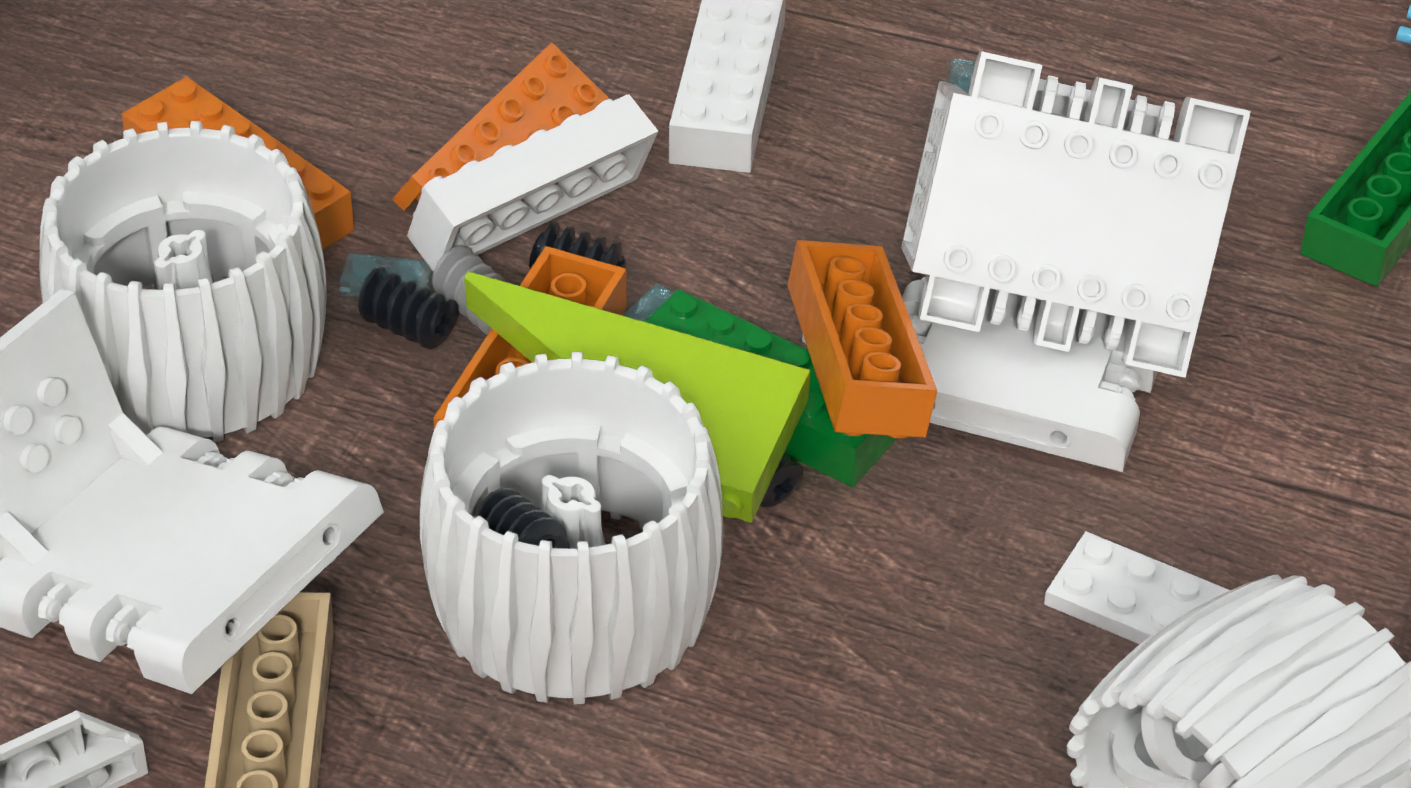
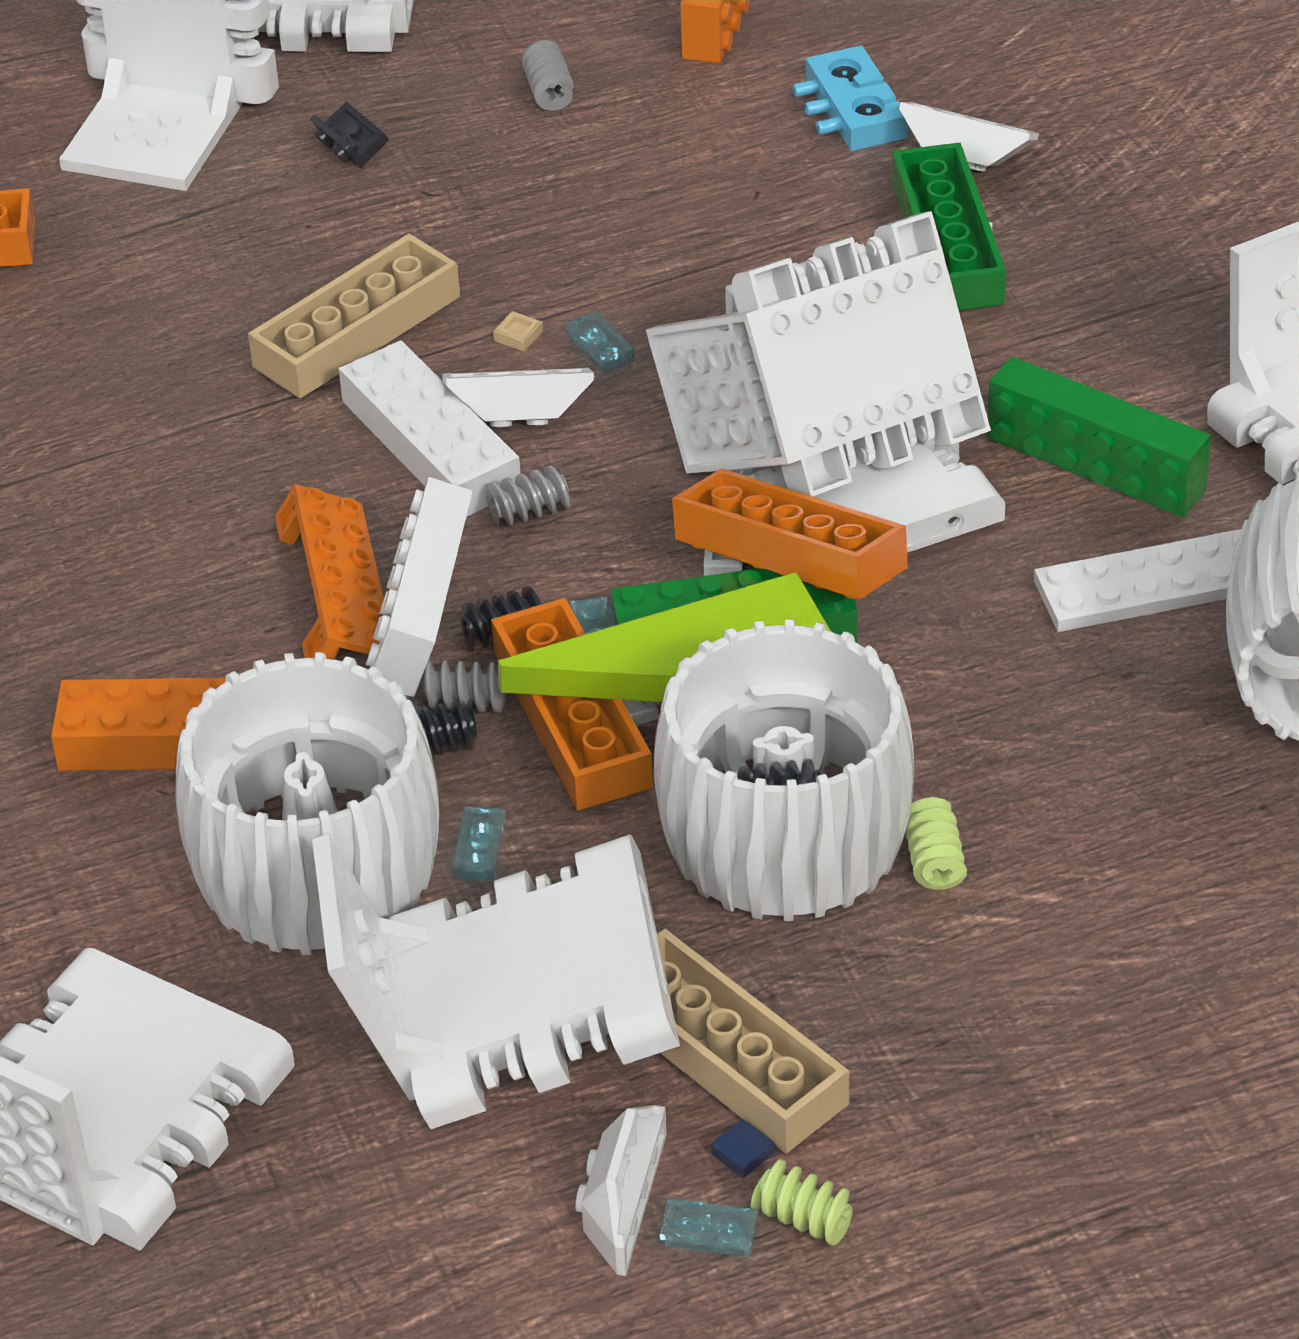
camera: 40 degrees left, 0 degrees up
(322, 424) = (479, 843): none -> clear light blue plate
(665, 699) = (935, 844): none -> yellowish green piece
(733, 178) = (527, 494): none -> light grey piece
(826, 86) = (519, 394): none -> white wedge
(916, 43) = (518, 331): none -> tan tile
(1287, 453) = (1098, 436): none -> green brick

